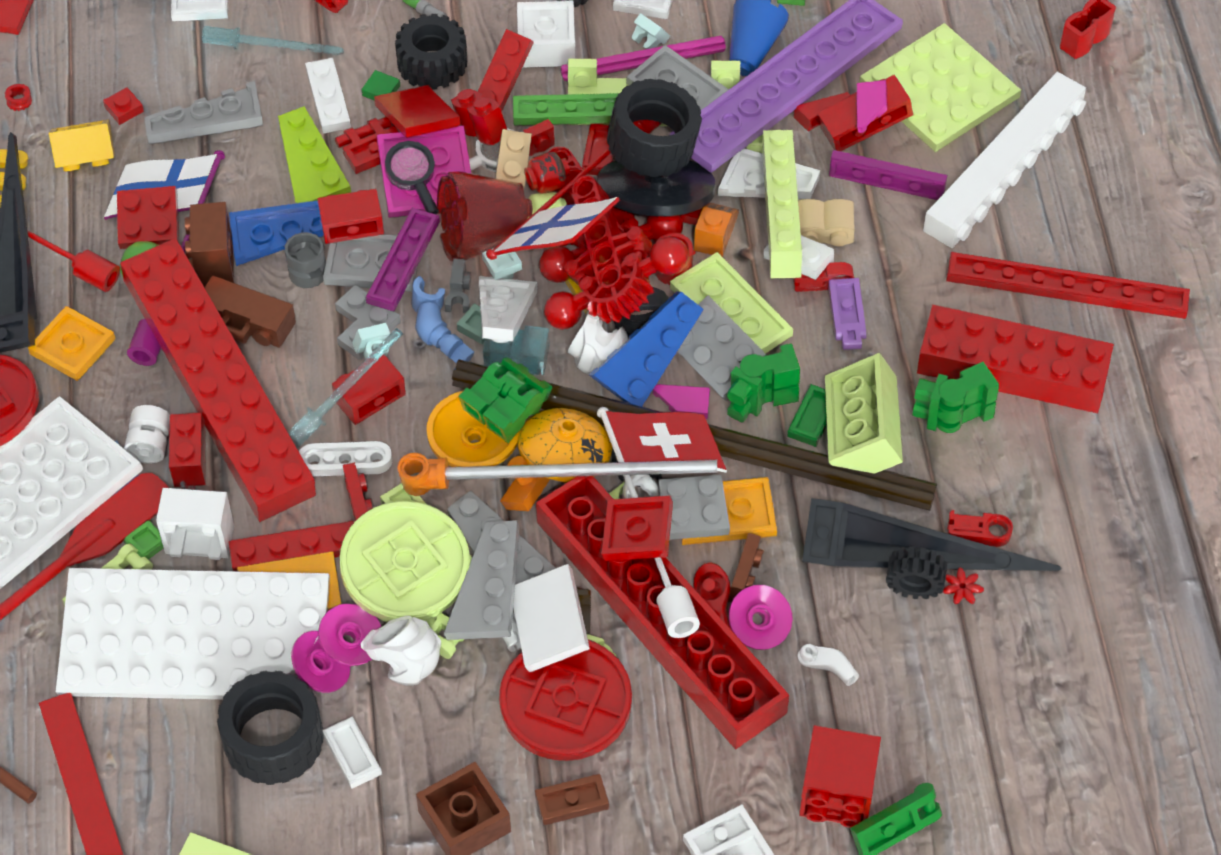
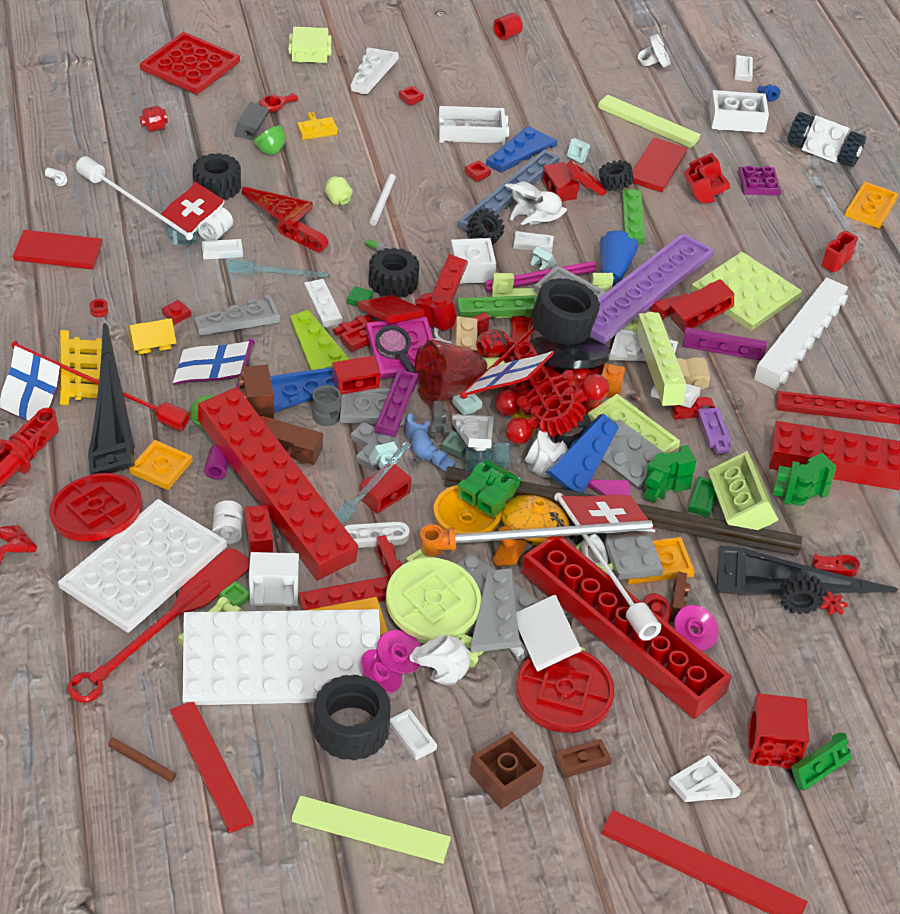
camera: 10 degrees left, 10 degrees down
(147, 215) = (204, 379): red plate -> none
(637, 528) = (603, 567): red plate -> none
(830, 660) = (750, 656): white arm -> none
(870, 102) = (707, 295): dark pink tile -> none

